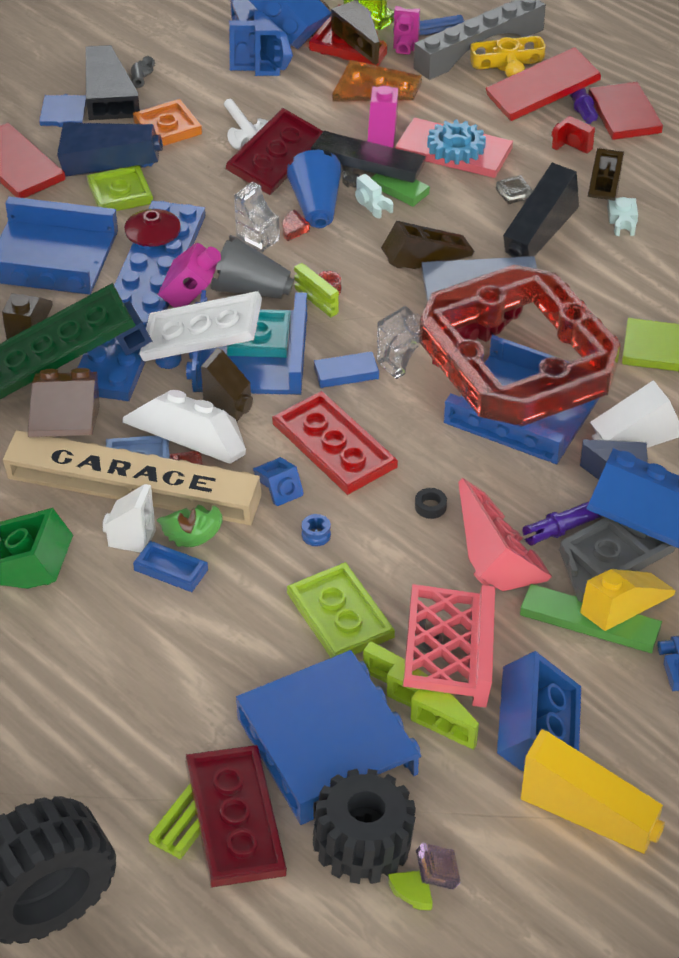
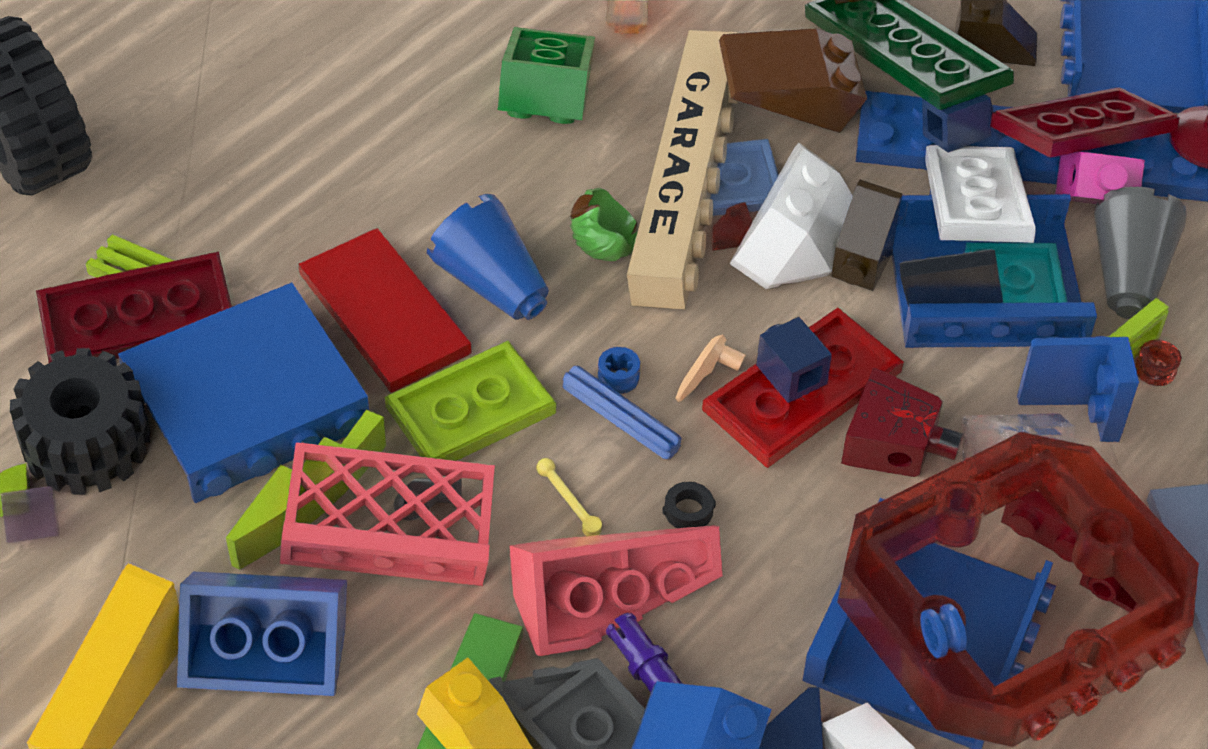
camera: 85 degrees right, 5 degrees up
(131, 521) = (596, 164): white slope -> none
(141, 272) = (1084, 121): none -> dark red tile
(170, 566) = (546, 222): blue tile -> none
(216, 584) = (490, 258): none -> blue cone
(244, 659) = (385, 309): none -> red tile
(281, 479) = (705, 316): blue bracket -> none
(286, 343) = (952, 279): none -> black tile
(315, 486) = (714, 352): none -> light nougat bar
(329, 431) = (793, 359): none -> dark blue brick
(346, 369) = (959, 386): tile -> none
(352, 530) = (622, 412): none -> axle
(364, 298) = (1083, 372): none -> blue bracket
(377, 397) = (897, 428): none -> dark red torso
(443, 553) = (590, 524): none -> light yellow hinge
(571, 351) = (943, 630): none -> blue bush

